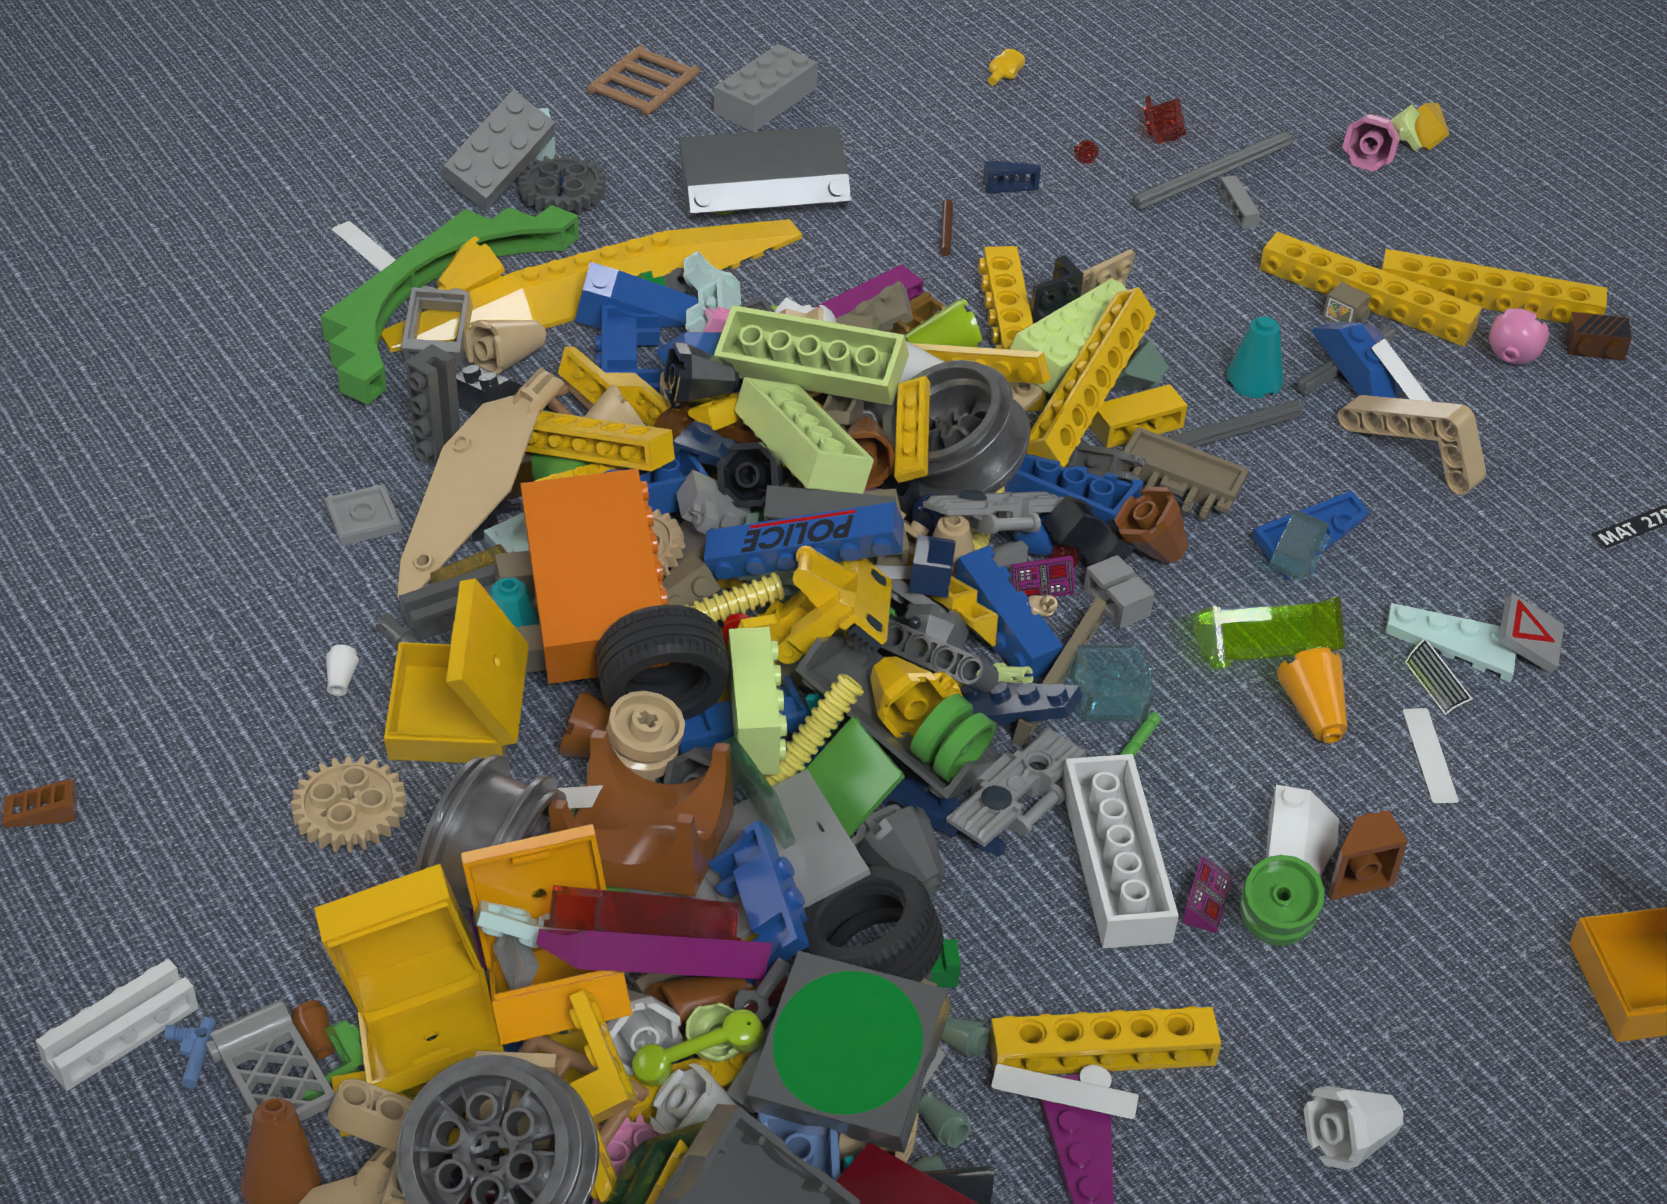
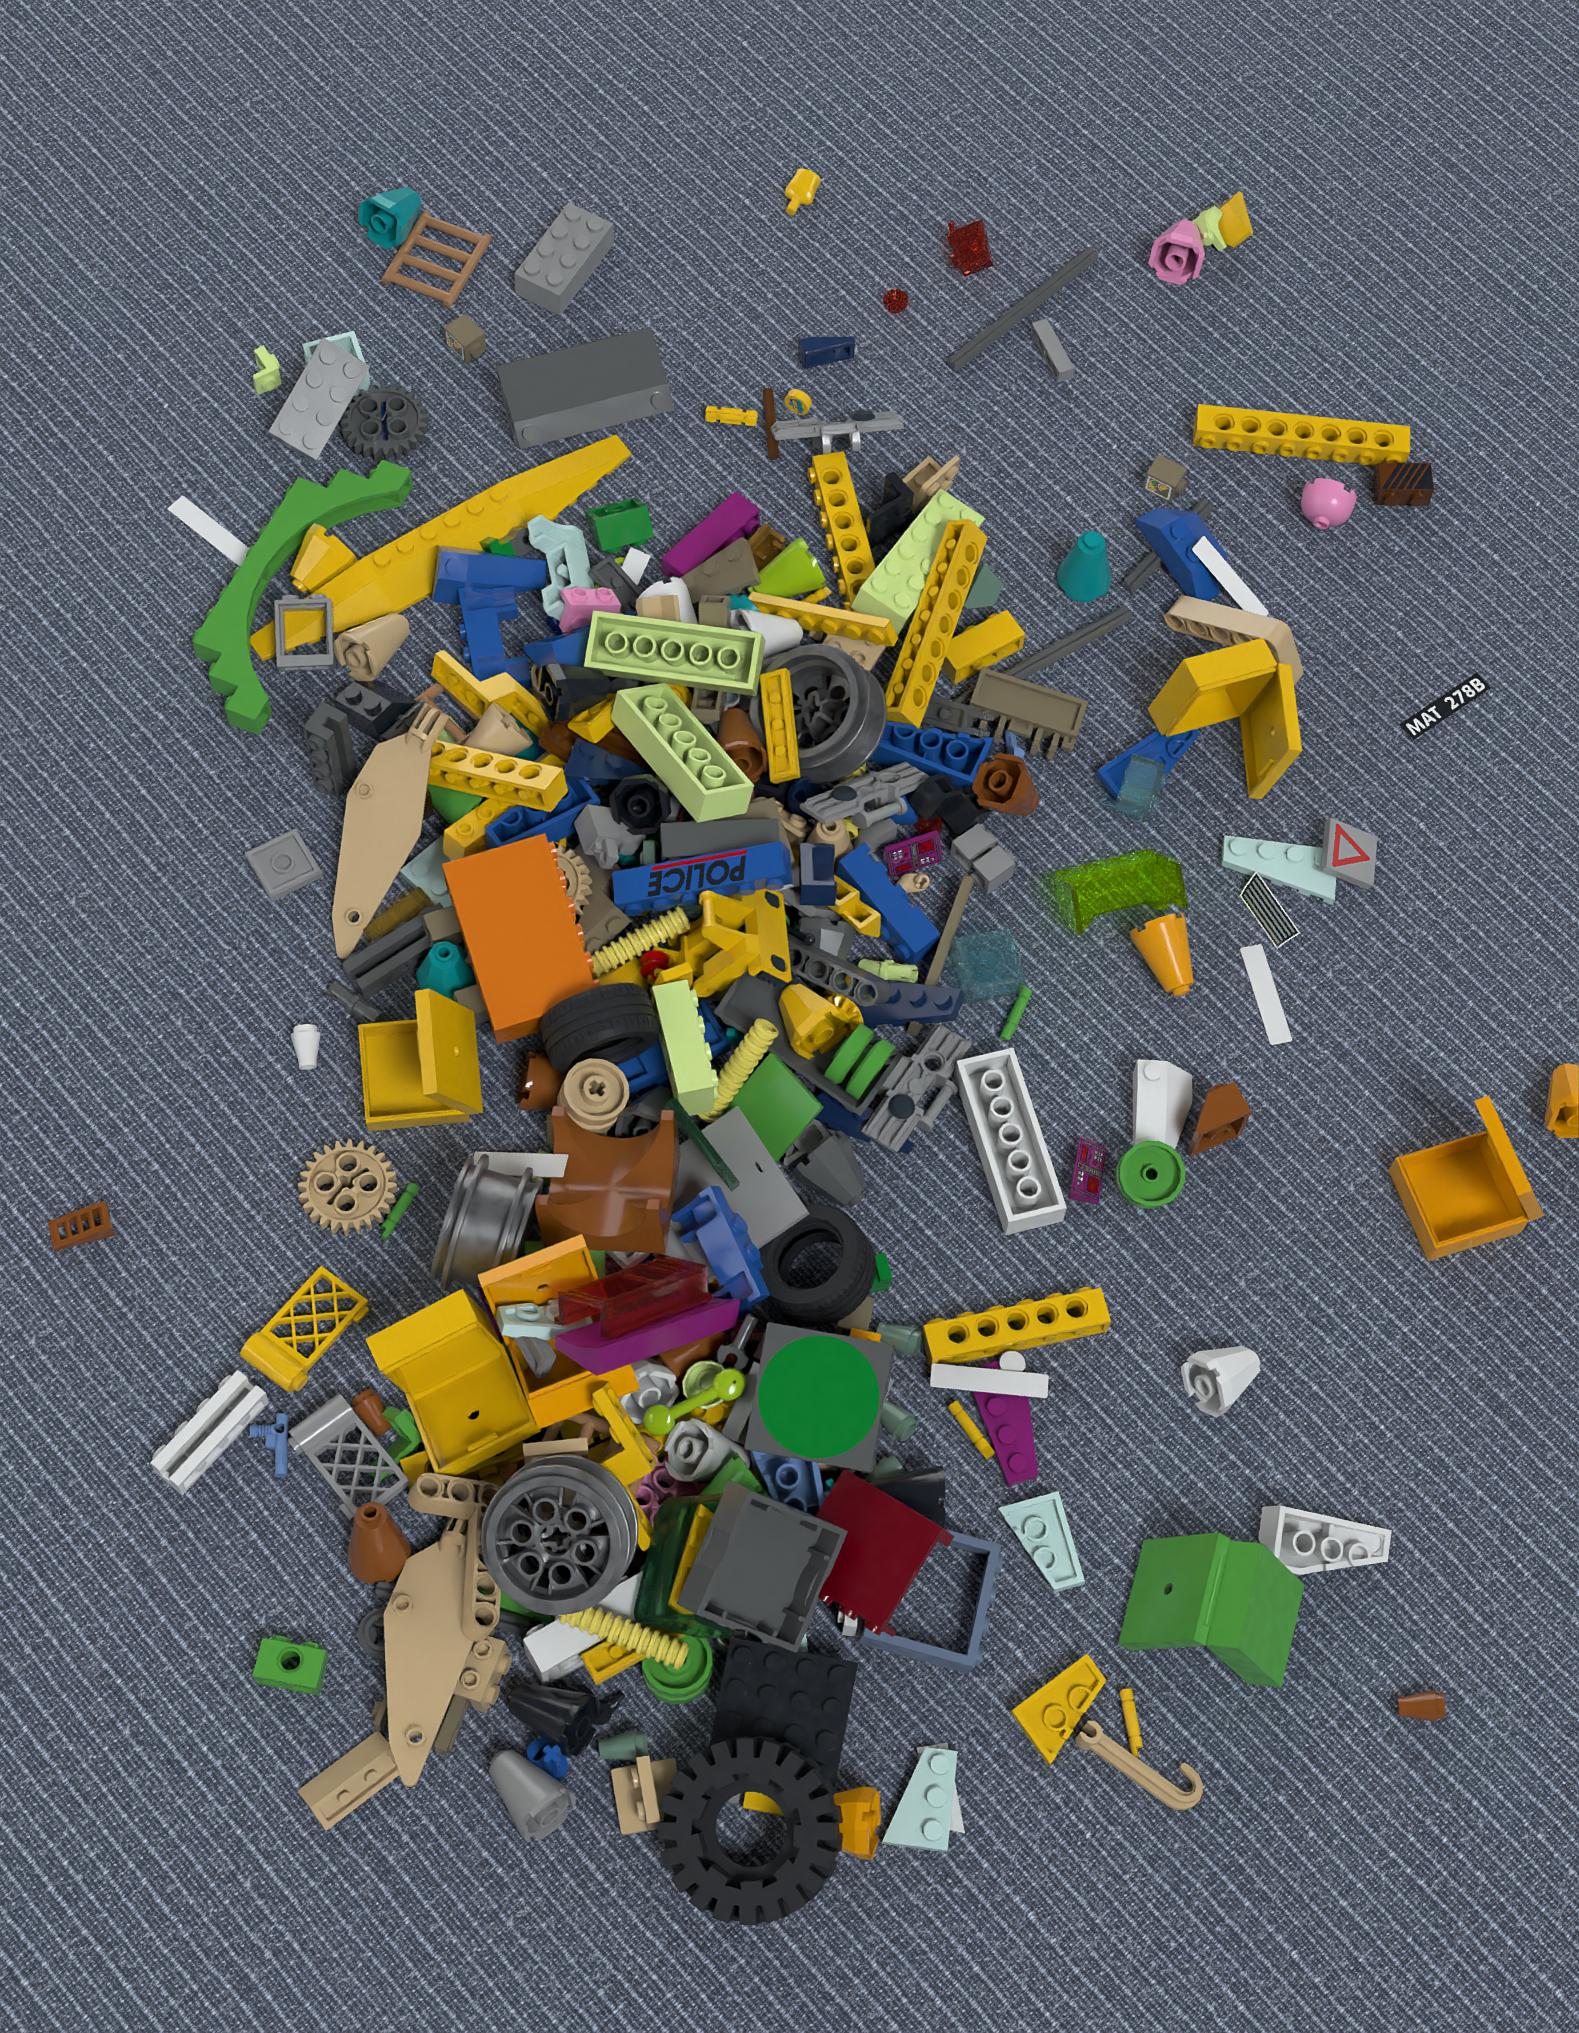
camera: 10 degrees left, 20 degrees up
(219, 957) = (279, 1360): none -> yellow piece
(401, 835) = (399, 1209): none -> bright green wheel
(456, 137) = (269, 374): none -> yellowish green bracket
(604, 40) = (389, 216): none -> teal cone
(656, 133) = (465, 338): none -> dark tan brick
(779, 281) = (620, 524): none -> green slope
(908, 216) = (731, 415): none -> yellow axle
(976, 211) = (798, 401): none -> yellow tile
(1030, 228) = (822, 432): none -> light grey piece
(1036, 1147) = (971, 1429): none -> yellow wheel
(1390, 294) = (1203, 457): yellow brick -> none
(1408, 460) = (1233, 684): none -> yellow container

